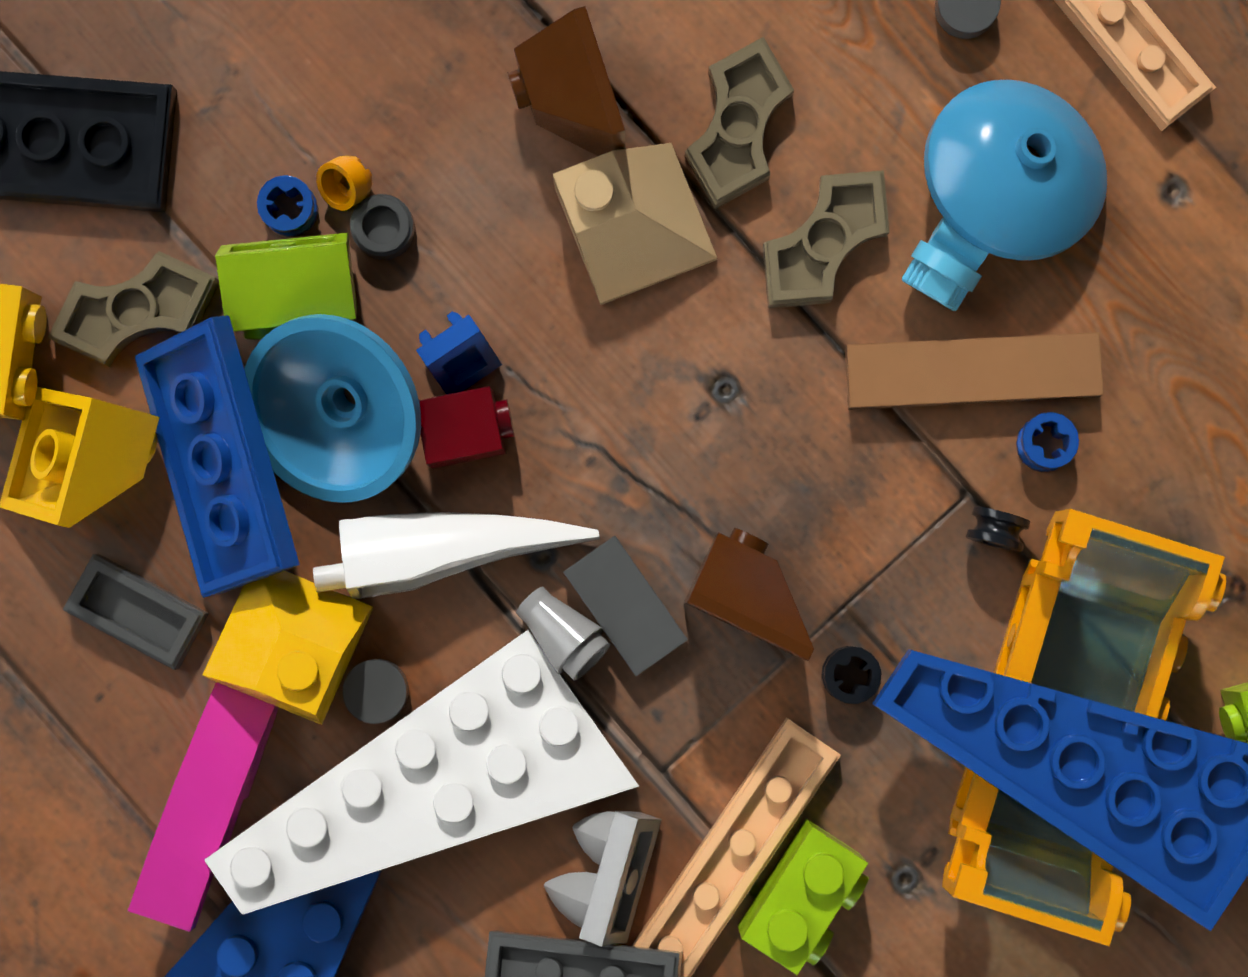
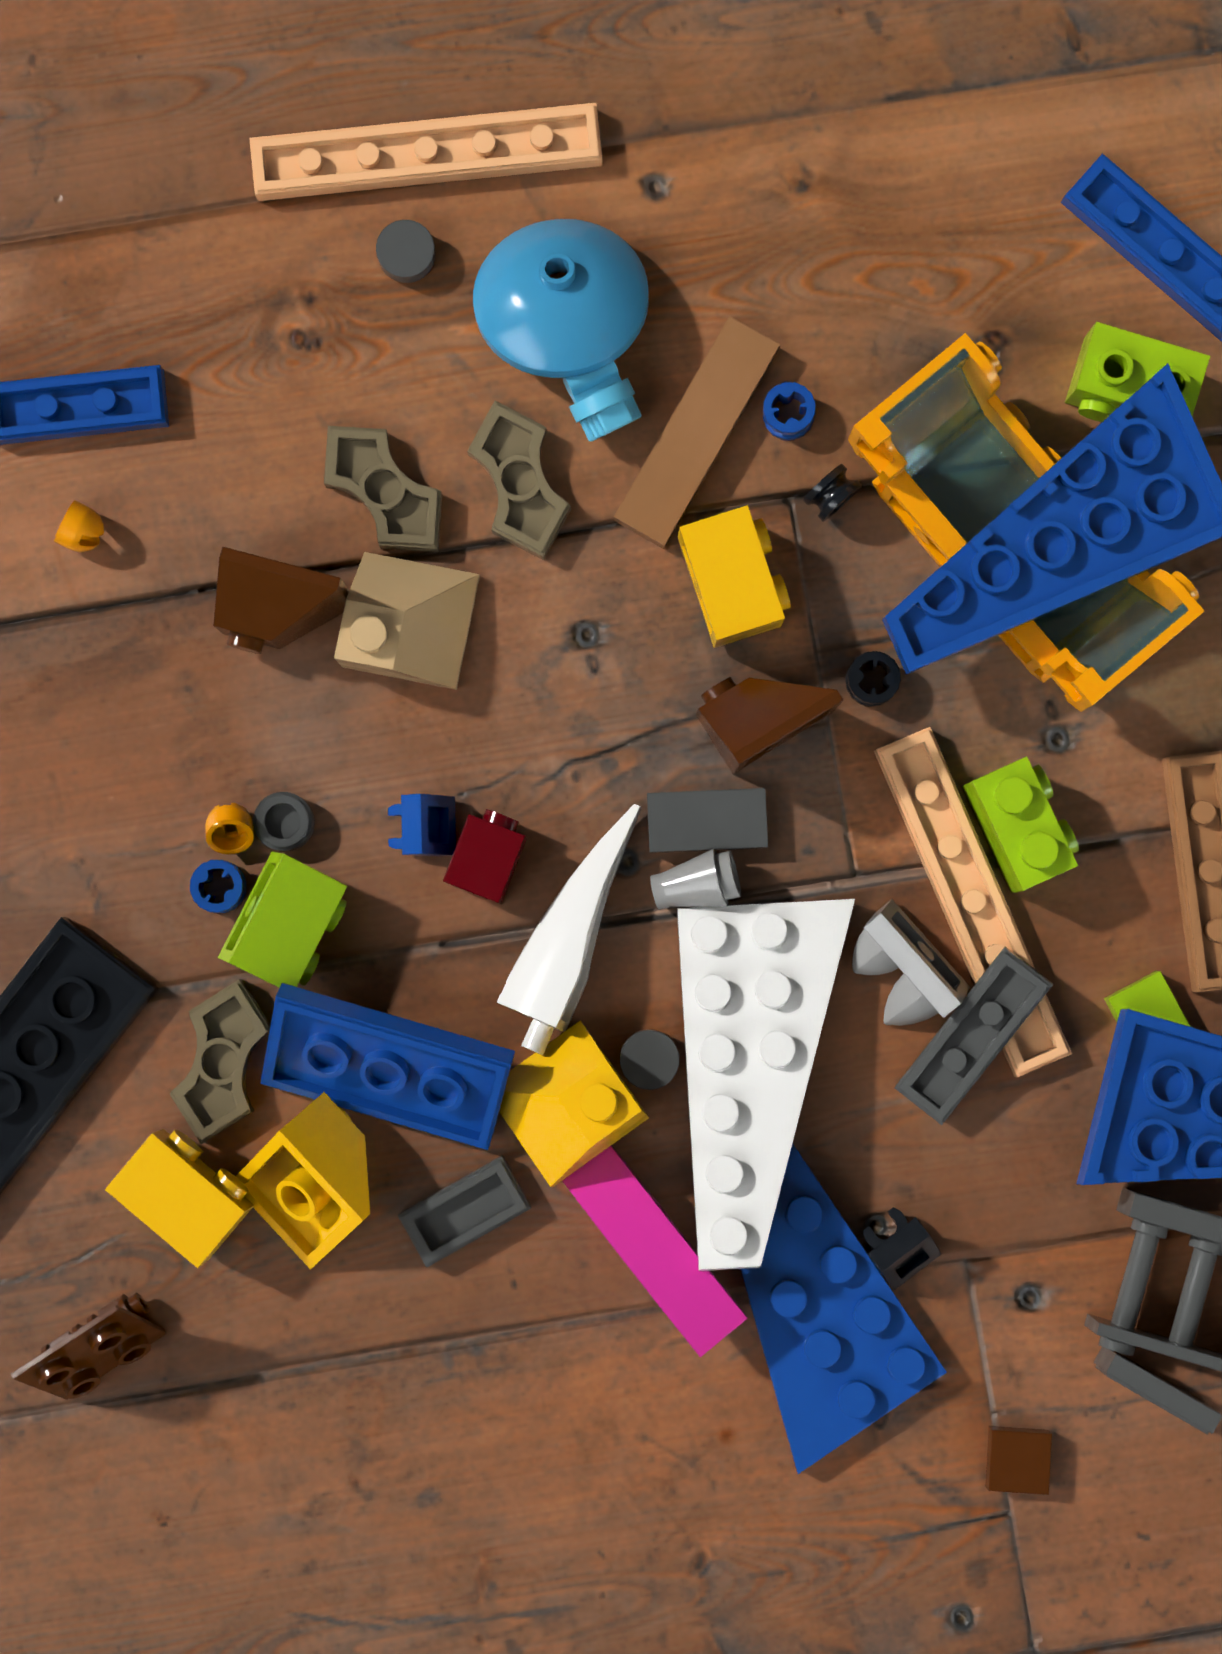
camera: 60 degrees left, 0 degrees up
(308, 424) = (416, 977): dark azure dish -> none
(862, 487) = (733, 575): none -> yellow brick

